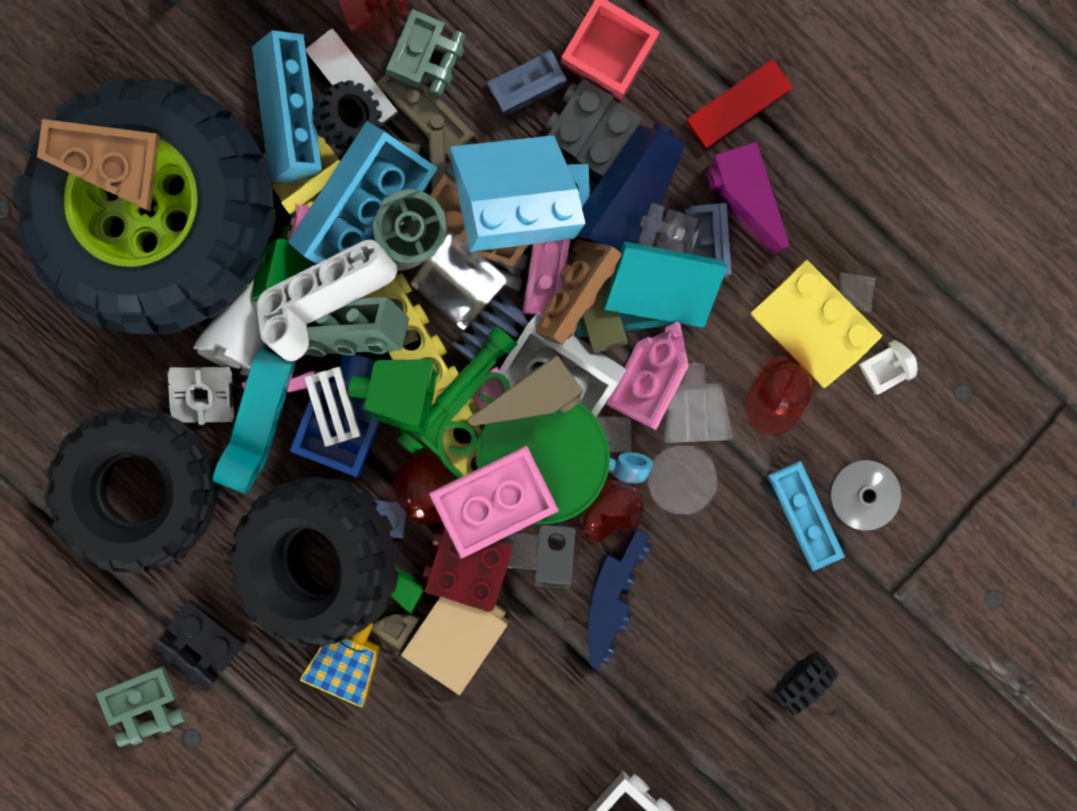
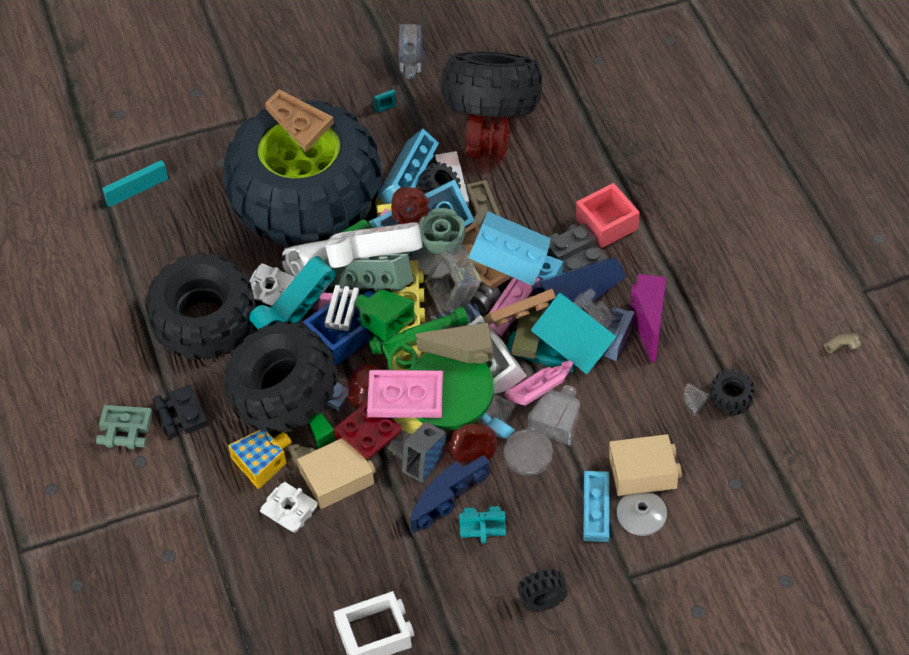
camera: 25 degrees right, 35 degrees down
(344, 217) = (409, 197): none -> clear red hair
(415, 49) = (496, 175): sand green plate -> none
(433, 731) = (287, 495): none -> white piece
(527, 84) = (550, 220): sand blue hinge -> none
(693, 610) = (483, 523): none -> teal hips
(739, 104) = (678, 275): red tile -> none
(779, 395) = (618, 426): clear red piece -> none
(815, 324) = (658, 399): light yellow slope -> none
(844, 433) = (644, 465): none -> tan brick
(889, 367) = (692, 446): white tile -> none
(927, 259) = (733, 380): none -> black tyre
(1022, 95) = (838, 341): none -> dark tan arm

